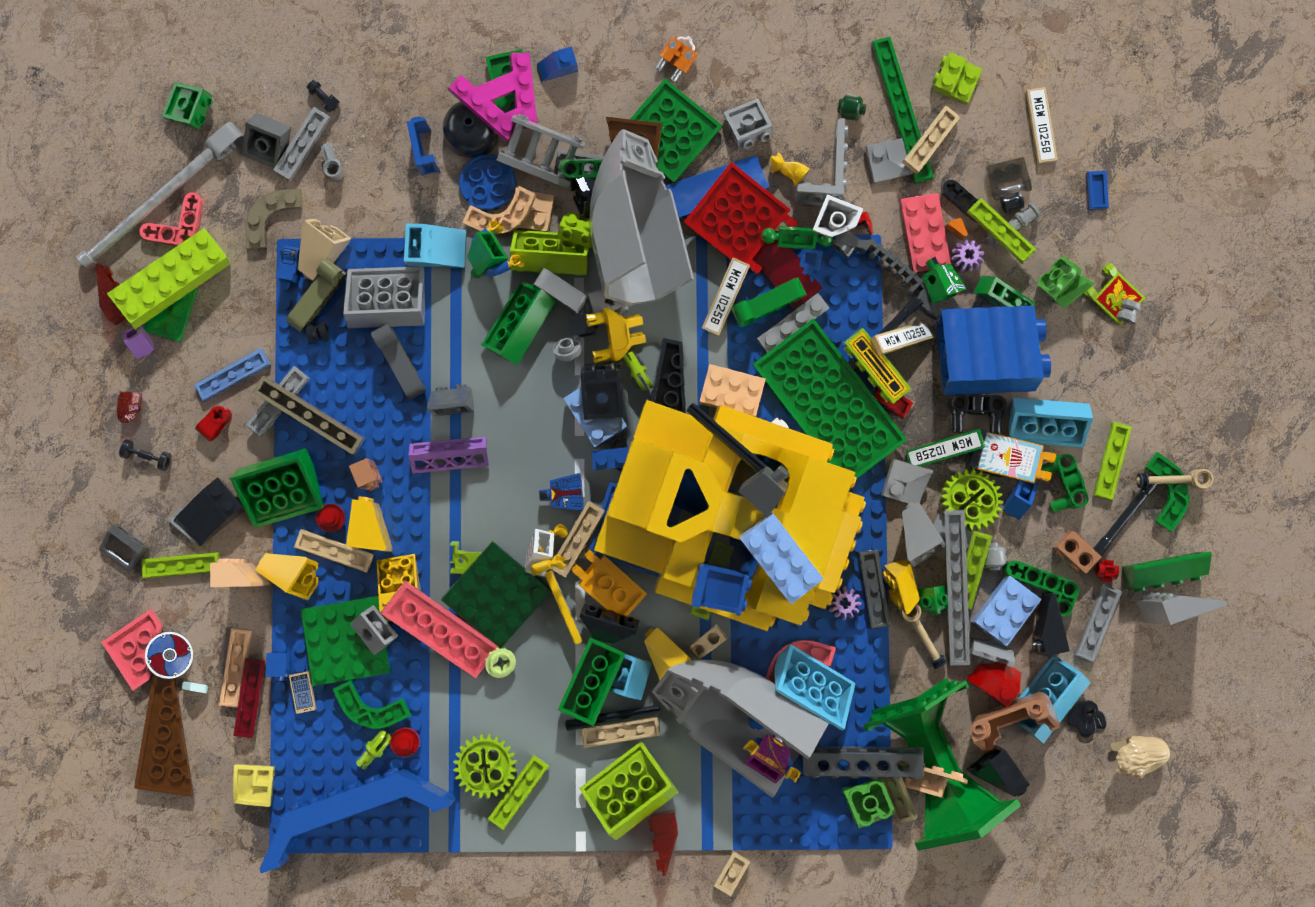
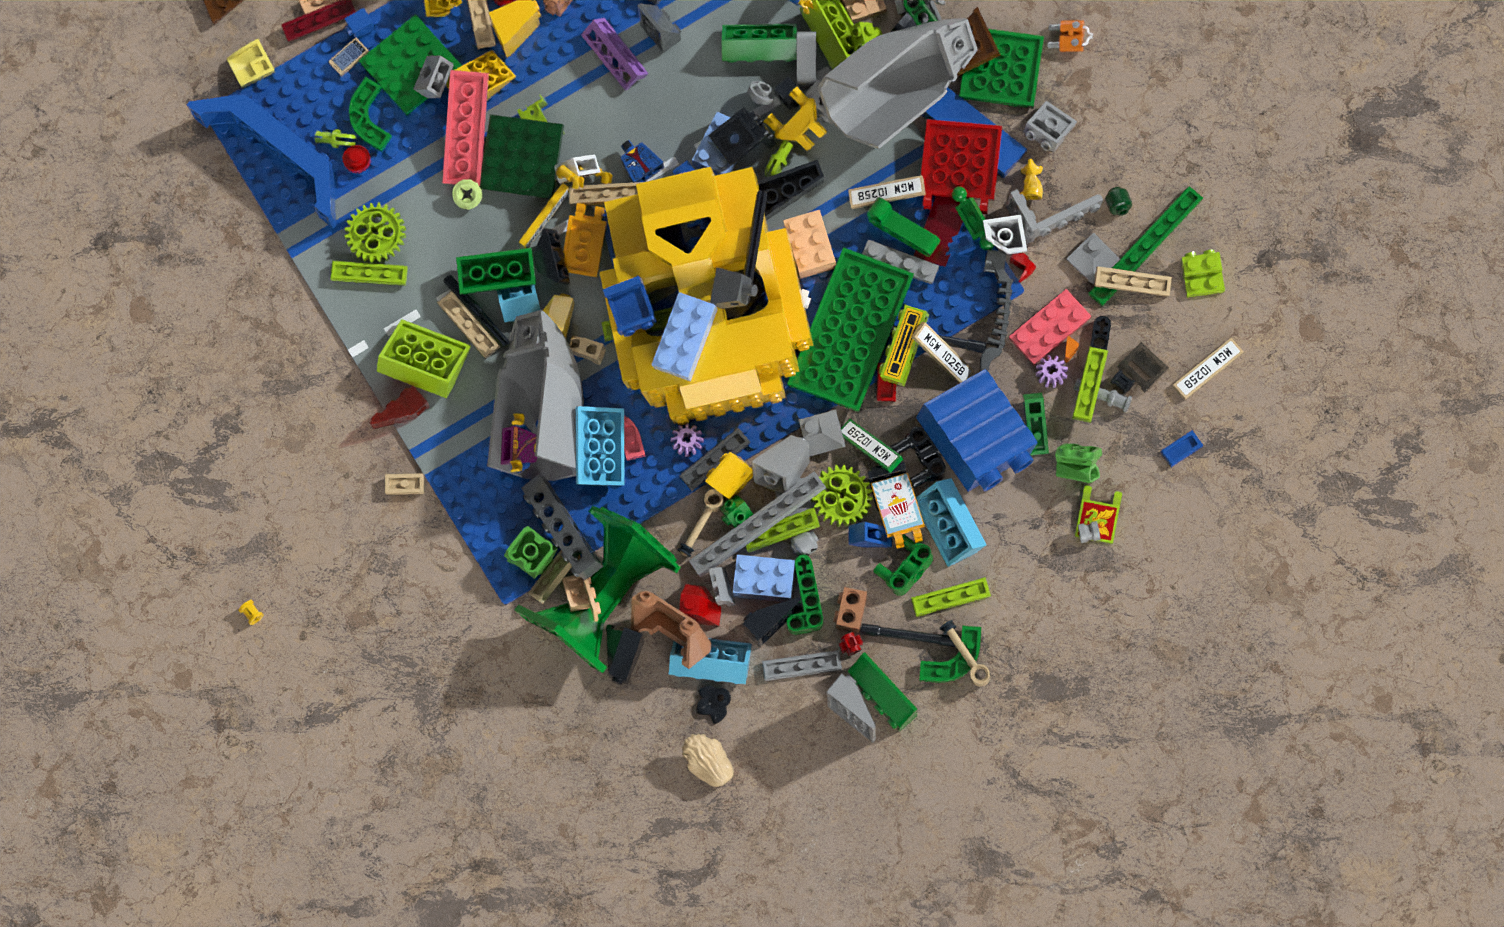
camera: 65 degrees right, 10 degrees down
(942, 281) = (1013, 361): green torso -> none

